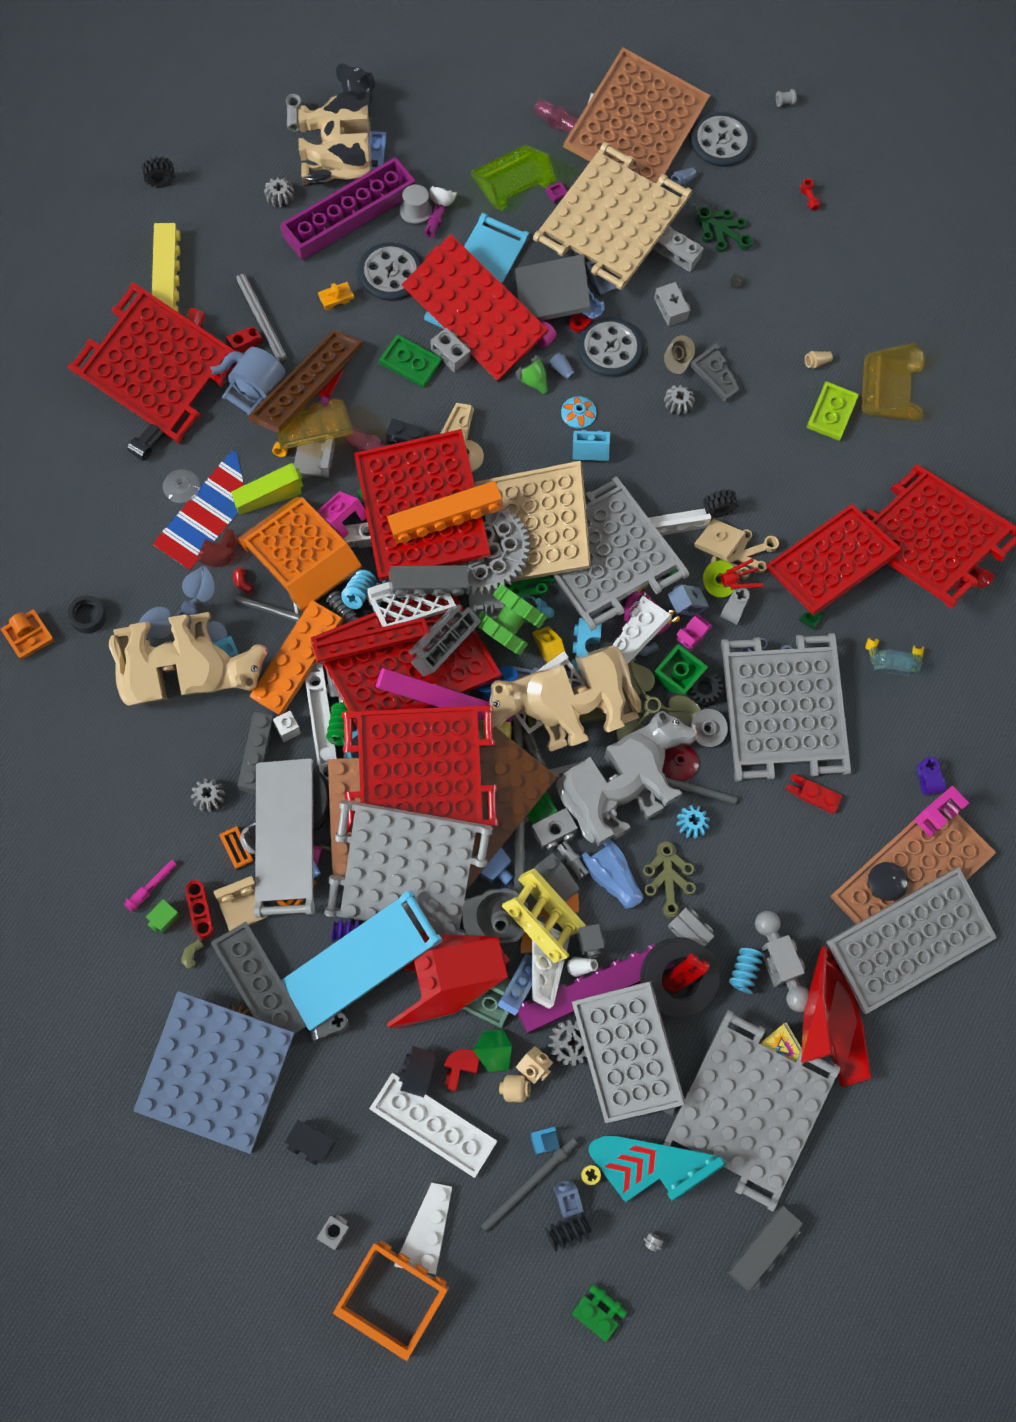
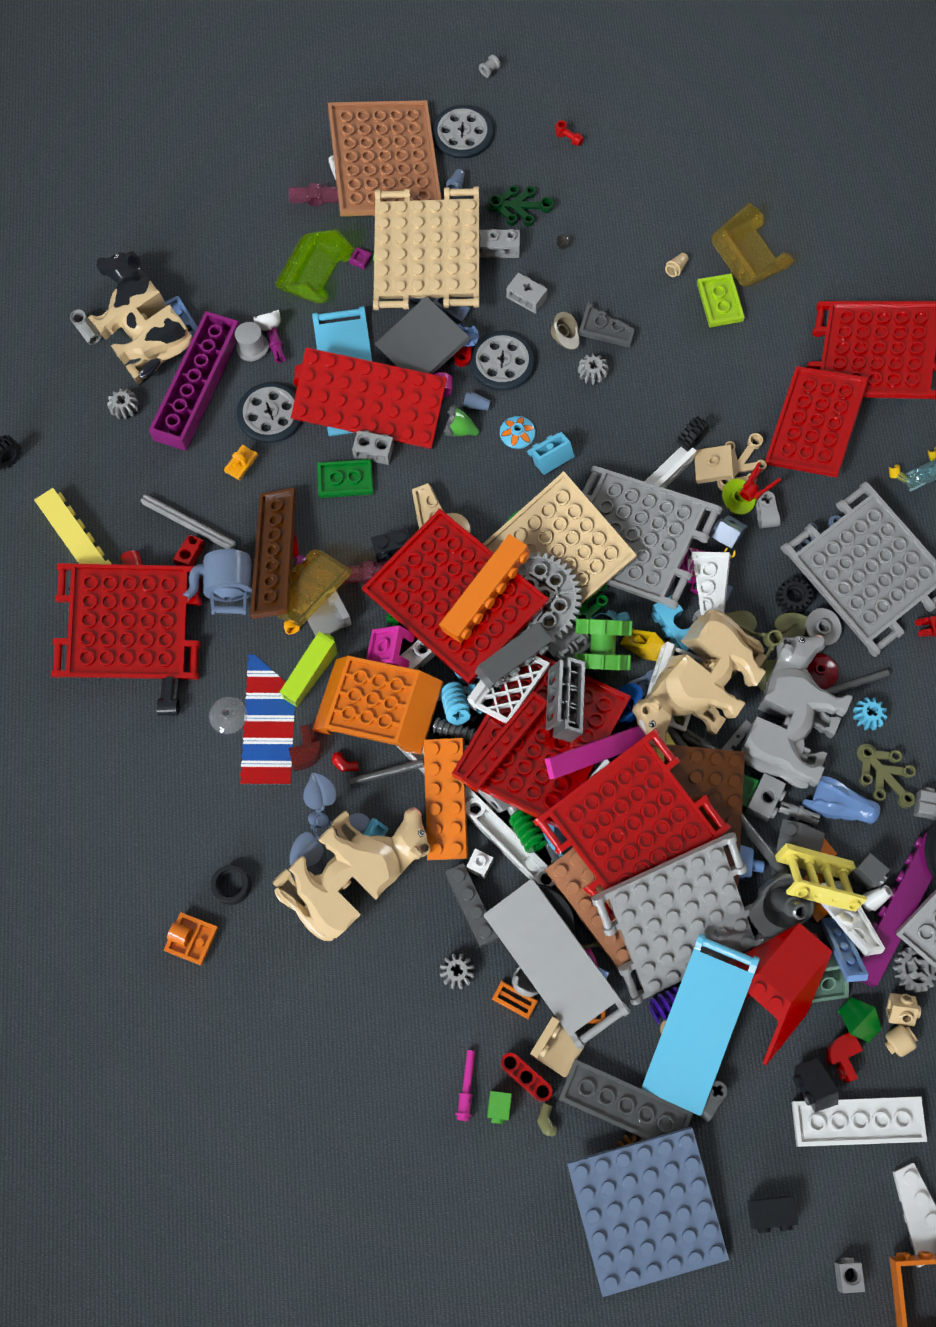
camera: 25 degrees left, 0 degrees up
(679, 671) = (767, 595): green slope -> none
(694, 632) = (751, 555): dark pink brick -> none
(811, 620) = (832, 483): dark green tile -> none

